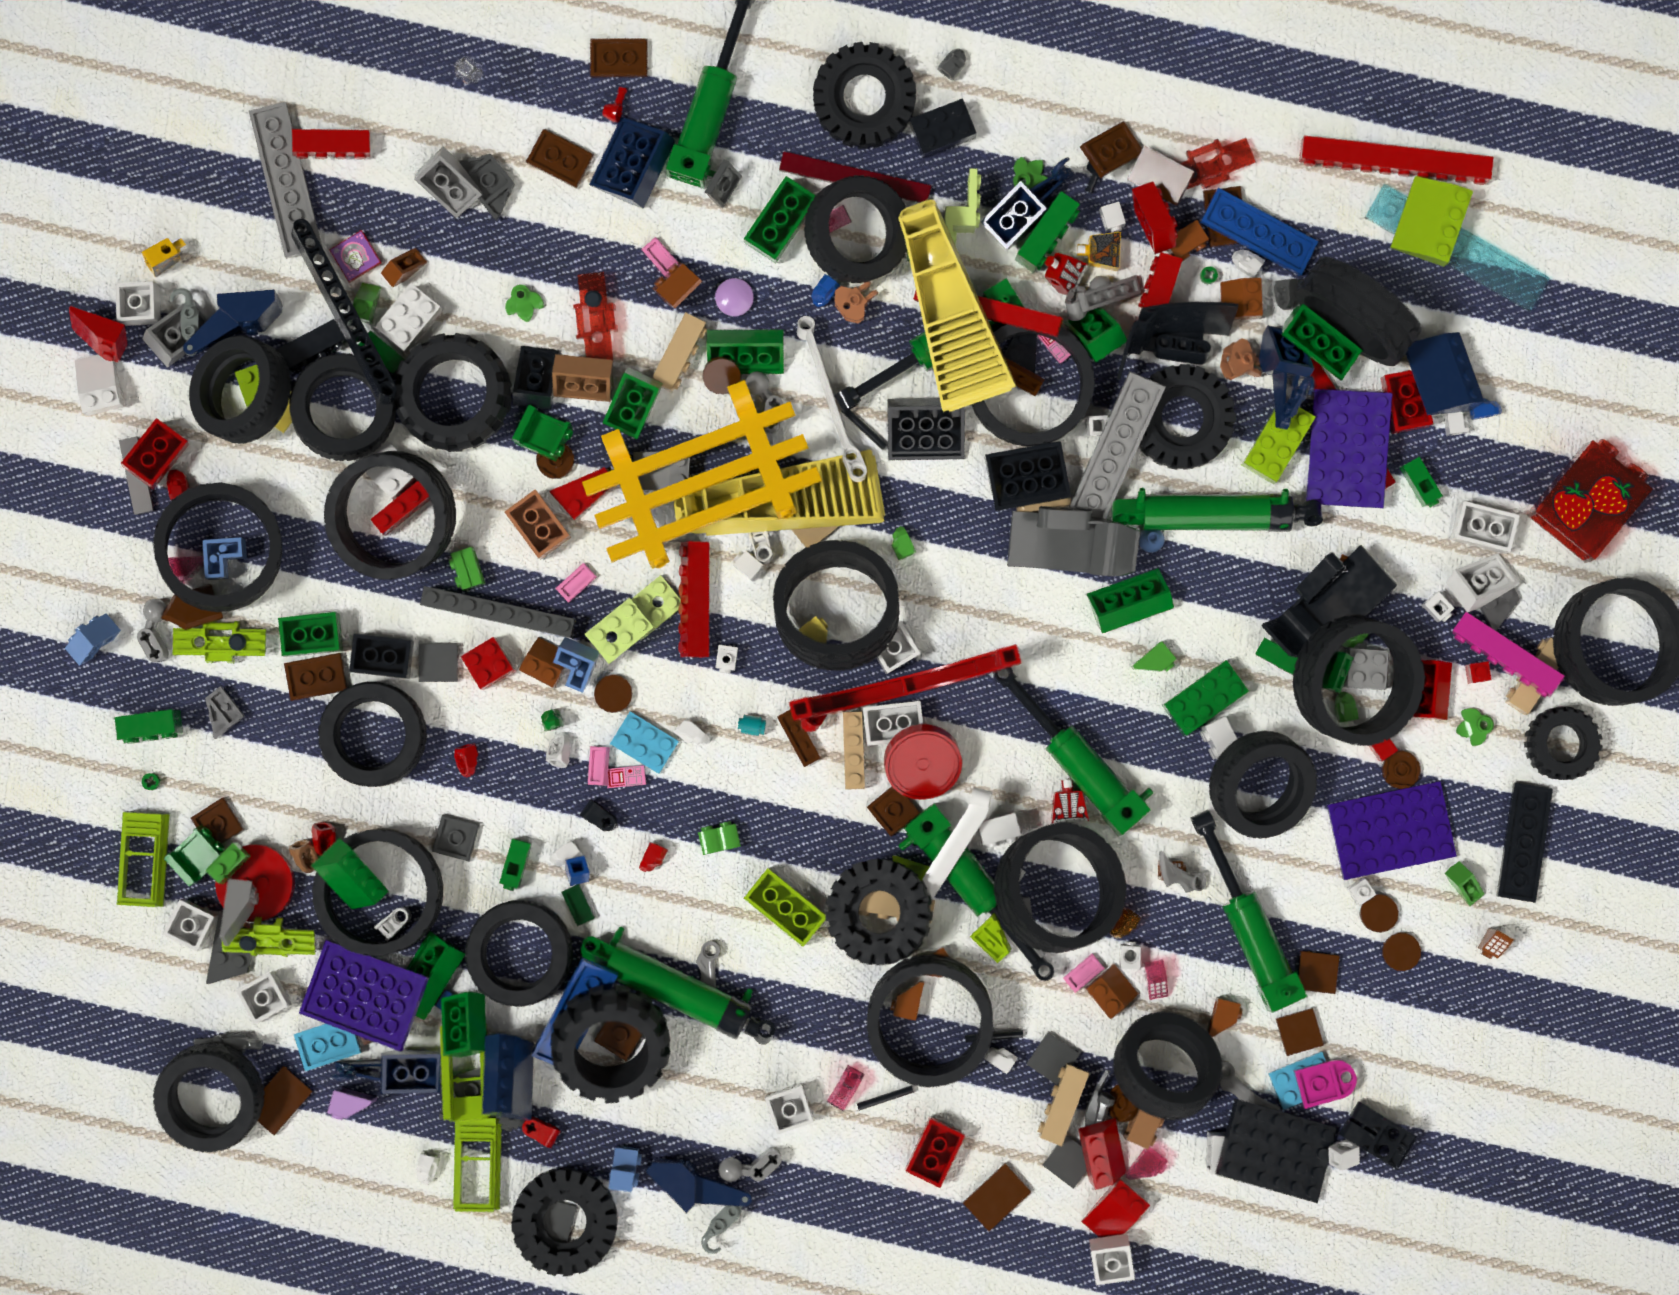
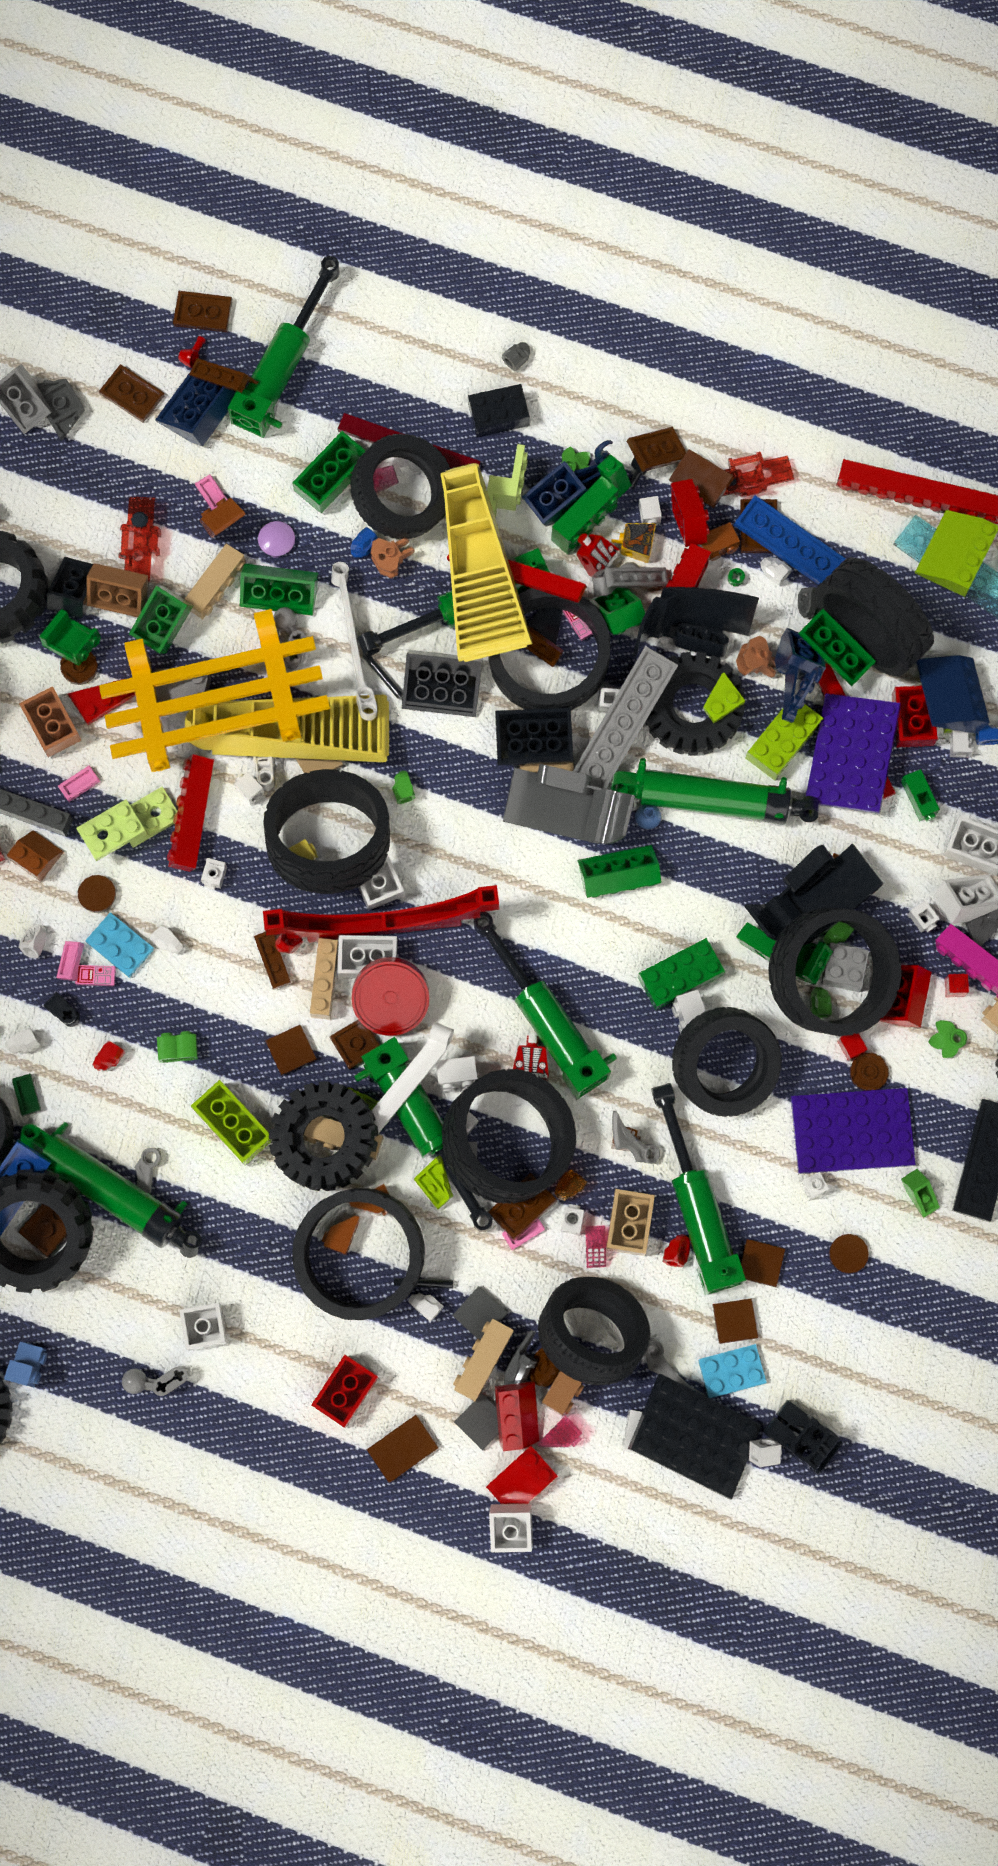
camera: 10 degrees right, 10 degrees down
(468, 70) = (59, 303): clear head -> none
(525, 305) = (73, 520): bright green plate -> none
(552, 720) = (32, 910): green rock -> none
(577, 870) = (30, 1058): blue brick -> none
(579, 660) = (69, 856): medium blue brick -> none
(651, 133) = (220, 375): none -> reddish brown panel
(689, 1188) = (87, 1393): dark blue slope -> none
(720, 374) = (250, 602): reddish brown tile -> none
(723, 183) = (281, 432): dark grey tile -> none
(752, 725) = (228, 941): teal brick -> none
(830, 825) = (290, 1050): none -> reddish brown tile
(845, 1087) = (264, 1314): clear pink slope -> none
(855, 128) = (428, 402): black tyre -> none
(884, 1098) = (303, 1331): black bar -> none
(1073, 186) = (615, 473): none -> green brick
(1078, 962) = (519, 1216): none -> reddish brown tile
(1111, 991) = (548, 1253): dark orange slope -> none
(1156, 660) = (636, 931): bright green slope -> none
(1187, 952) = (630, 1222): none -> tan brick
(1212, 412) = (722, 699): none -> lime wing
(1224, 1015) = (660, 1292): dark orange slope -> none
(1236, 973) = (677, 1252): none -> red rock
(1246, 293) = (770, 602): dark orange slope -> none
(1323, 1082) = (752, 1374): dark pink tile -> none
(1379, 913) = (830, 1211): reddish brown tile -> none
(1494, 943) = (944, 1256): slope -> none

